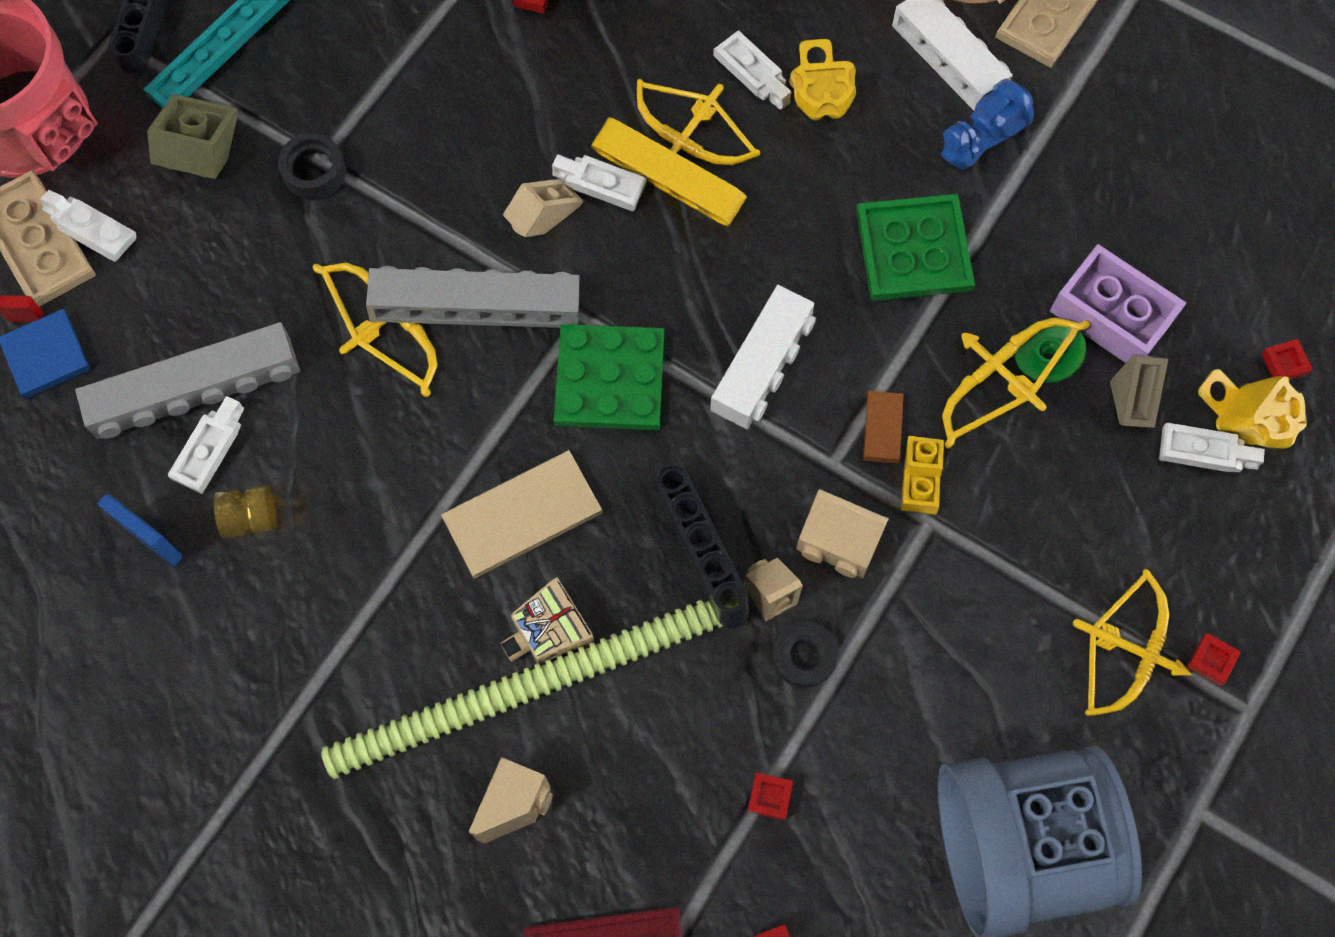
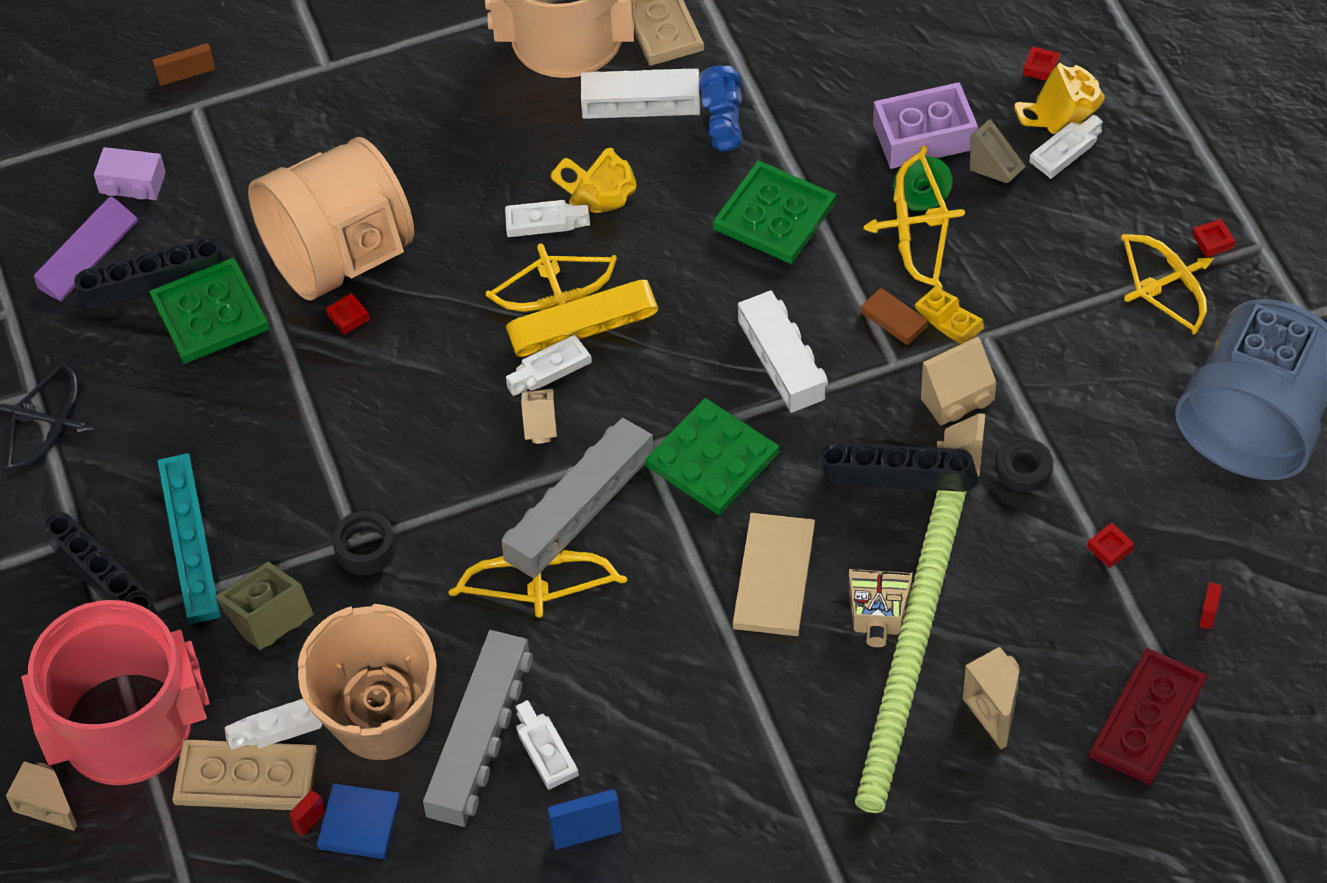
camera: 50 degrees left, 15 degrees down
(122, 265) = (368, 661): none -> light nougat cone
(245, 511) = (623, 747): clear yellow wheel -> none

